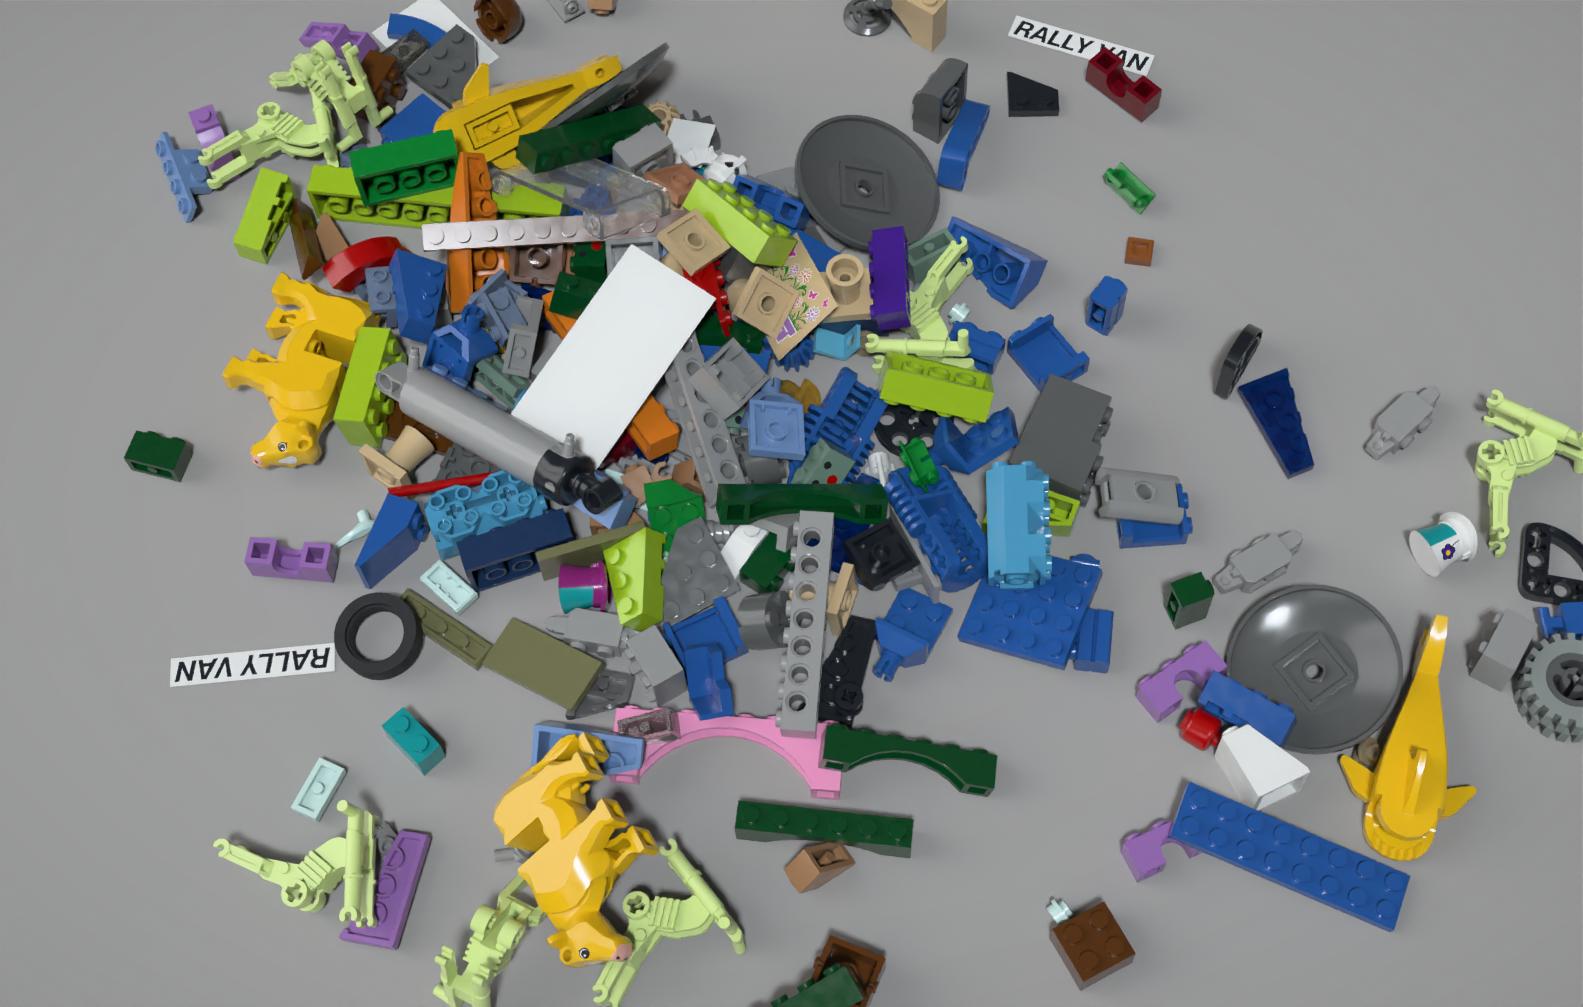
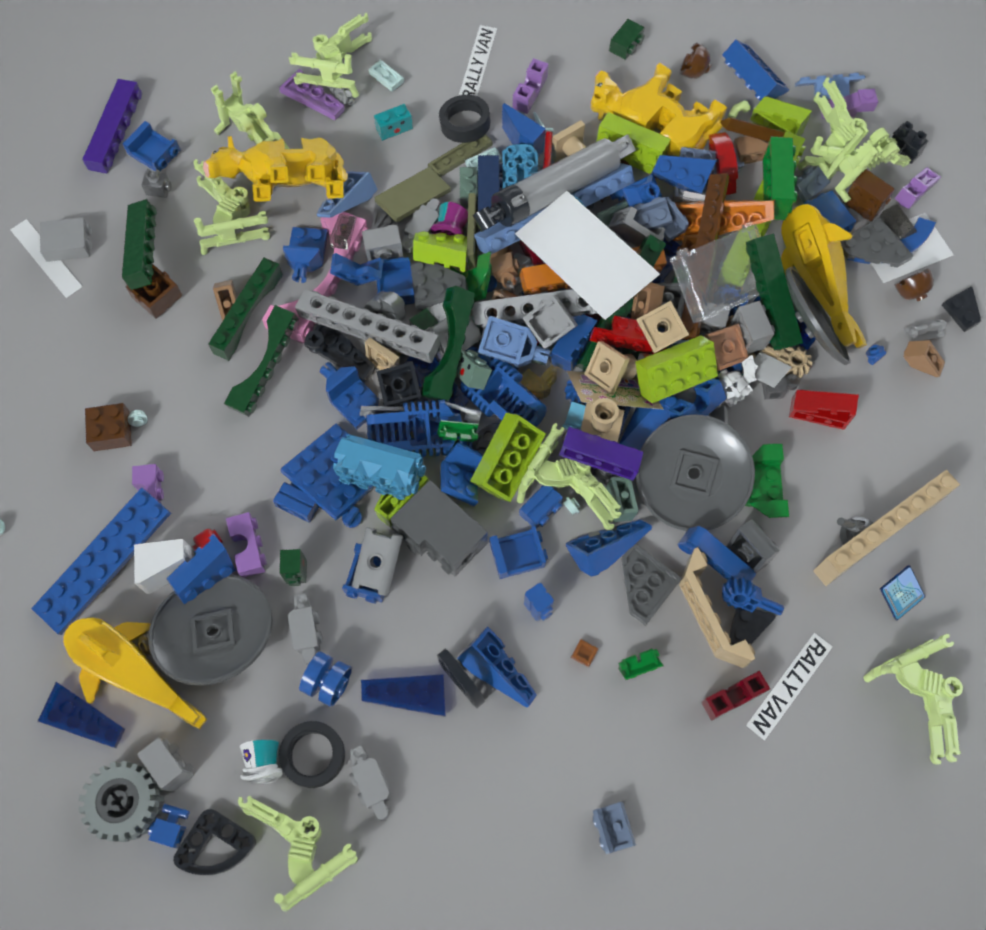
camera: 105 degrees right, 5 degrees up
(183, 271) = (754, 71): none -> blue slope
(186, 349) = (696, 62): none -> reddish brown cylinder
(253, 280) = (743, 105): none -> yellowish green arm
(263, 62) = (909, 141): none -> black hips
(507, 590) = (468, 184): none -> sand green brick
(613, 43) = (875, 353): none -> blue plate
(693, 786) = (305, 251): none -> blue plate
(716, 74) = (824, 408): none -> red wedge
(871, 103) = (767, 487): none -> green piece
(1000, 99) = (748, 596): none -> blue gear
(1003, 161) = (738, 654): none -> tan slope
(1027, 207) = (646, 583): none -> dark grey plate
(1203, 337) = (490, 663): none -> blue wedge
(1311, 506) = (325, 679): none -> blue wheel
(1323, 164) = (613, 828): none -> sand blue bracket
(1410, 469) = (289, 742): none -> black tyre
(1499, 803) = (76, 716): none -> clear blue wing

